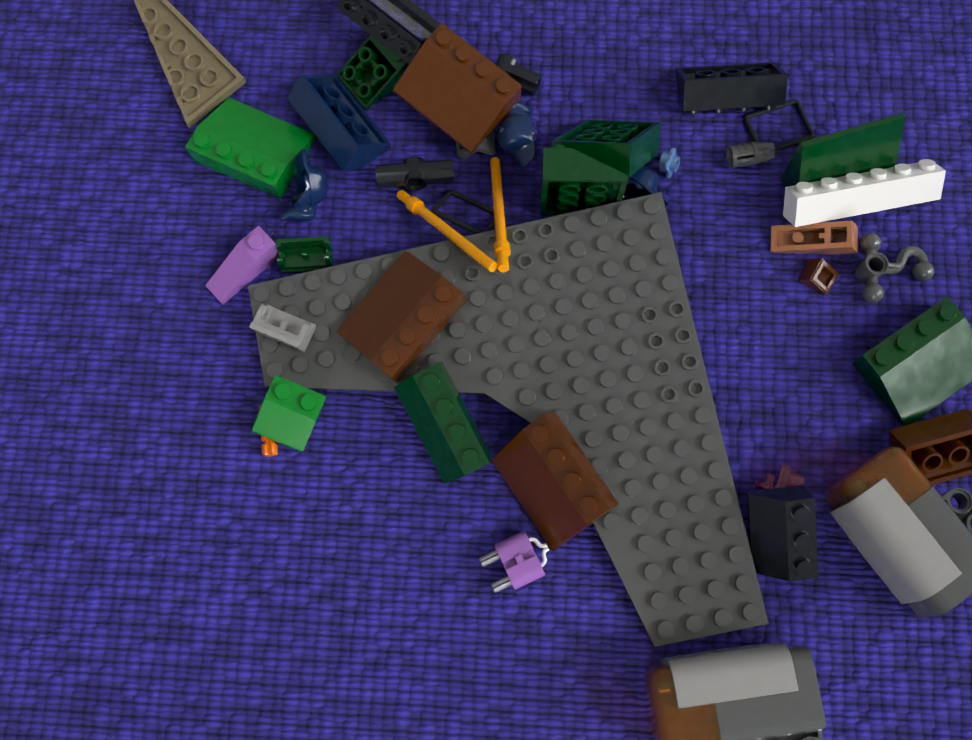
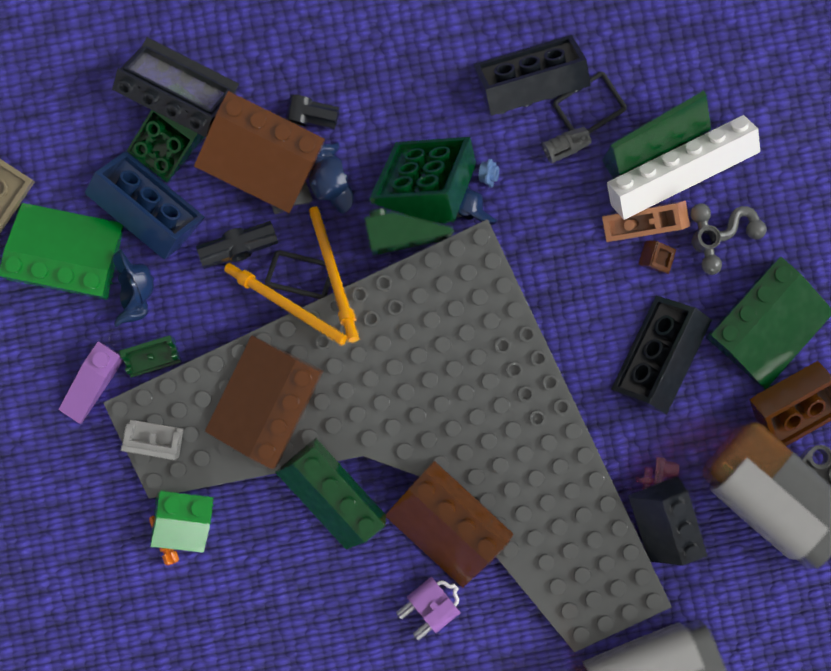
camera: 20 degrees left, 10 degrees up
(806, 366) = (661, 354): none -> black slope

